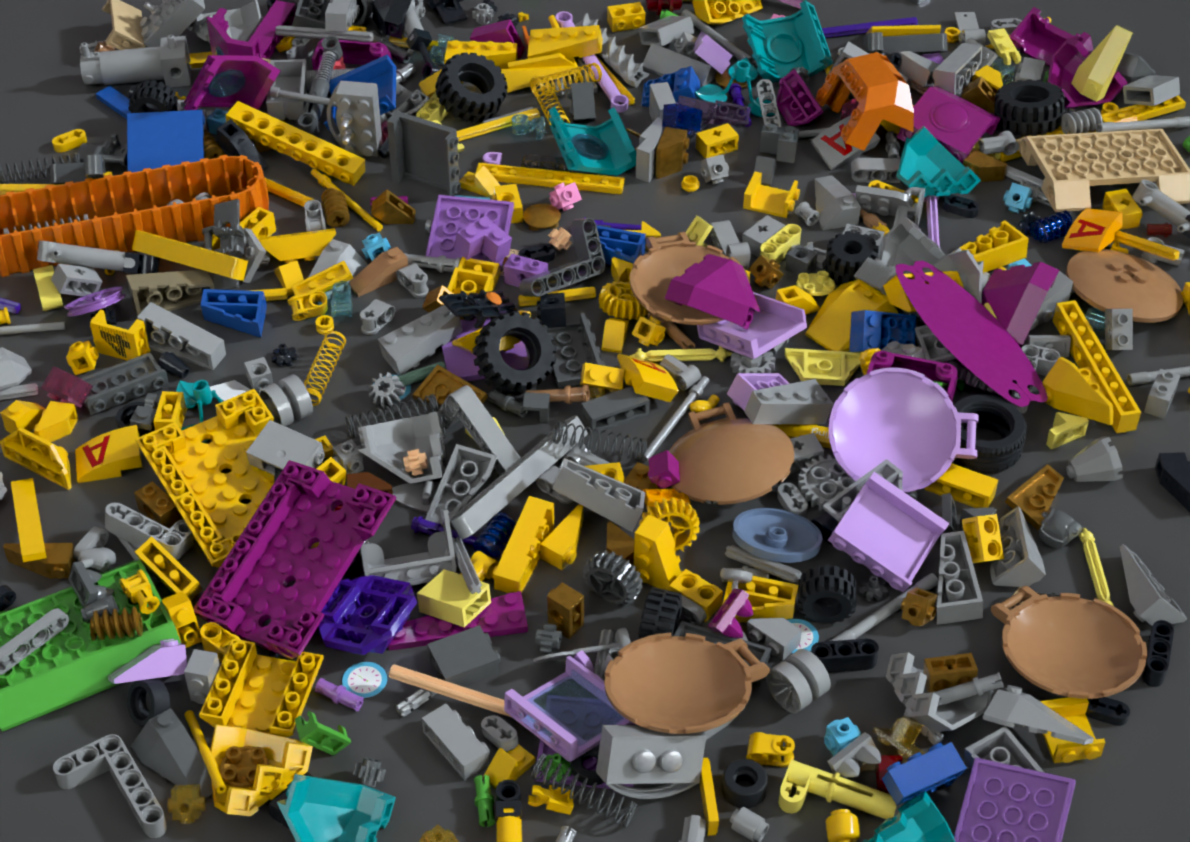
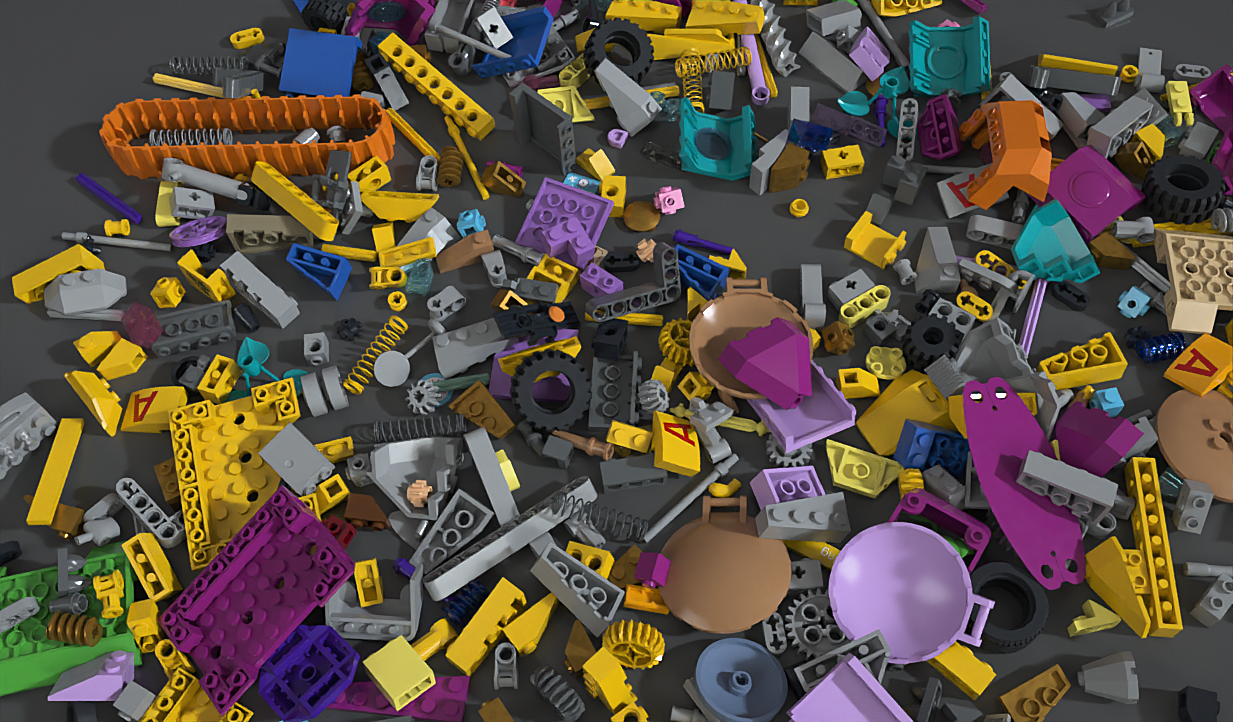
camera: 20 degrees right, 15 degrees up
(229, 389) = (286, 363): white sticker -> none
(331, 77) = (501, 33): none -> brick
(345, 374) = (393, 367): none -> light grey piece
(356, 117) = (495, 71): light grey piece -> none
(394, 539) = (368, 582): none -> yellow slope
(464, 283) = (532, 289): none -> dark grey hinge
(466, 566) = (419, 641): light grey axle -> none
(500, 124) = (631, 102): none -> light grey wedge
(551, 178) = (667, 172): yellow tile -> none
(553, 571) = (506, 671): none -> light grey piece
(611, 345) = (653, 396): none -> light grey gear
(670, 349) = (707, 415): none -> light grey hinge
(682, 83) = (824, 87): blue slope -> none
(699, 231) = (781, 277): light yellow slope -> none
(714, 169) = (826, 191): light grey brick -> none
(835, 228) = (927, 302): none -> black bush
(864, 27) = (1044, 48): dark purple axle -> none
(880, 222) = (978, 302): none -> yellow beam
(1010, 326) = (1068, 486): none -> light grey wedge

